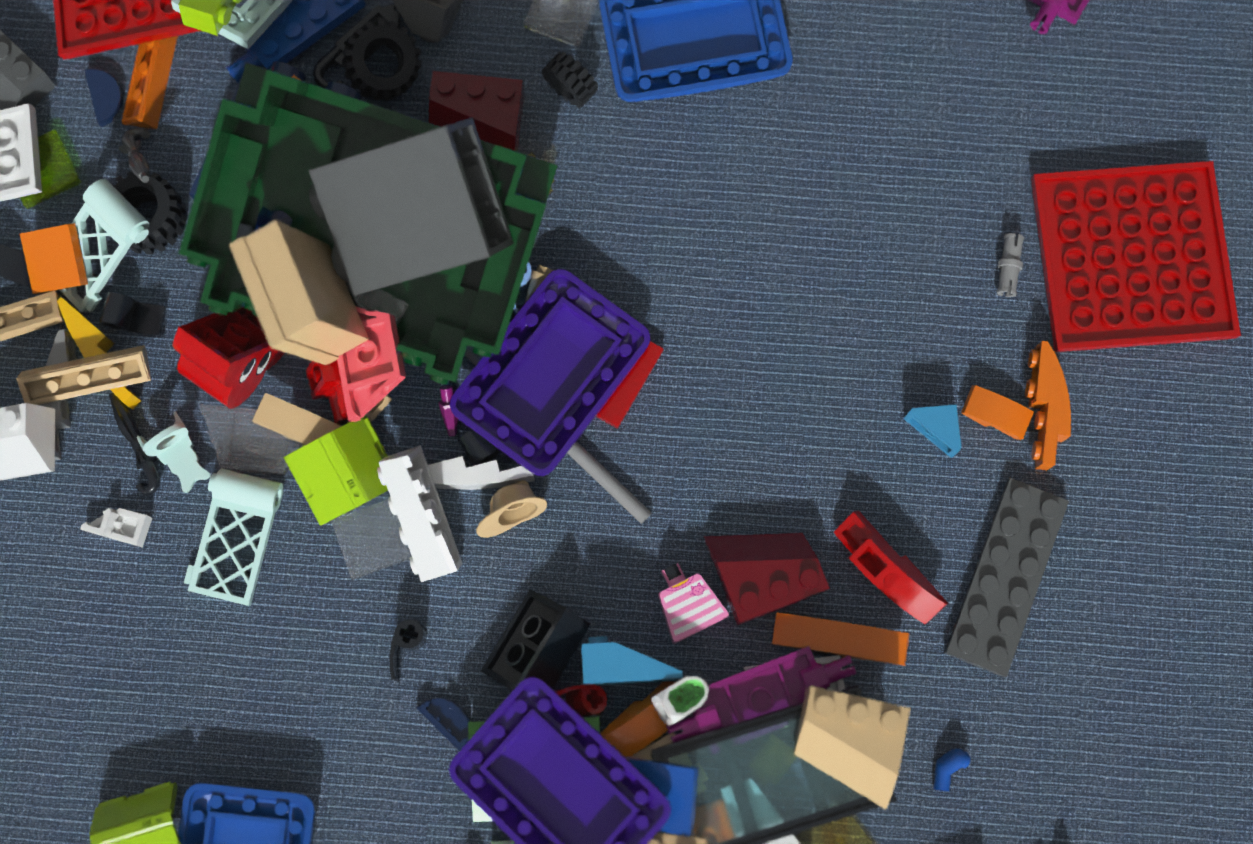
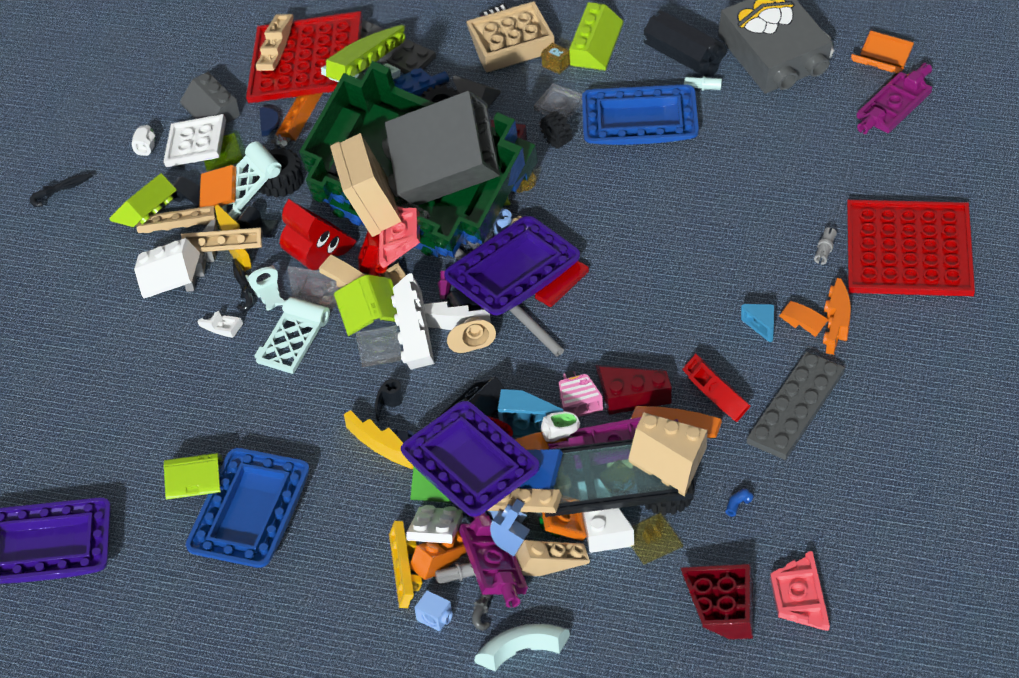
camera: 15 degrees right, 30 degrees down
(417, 733) = (382, 442): none -> yellow slope

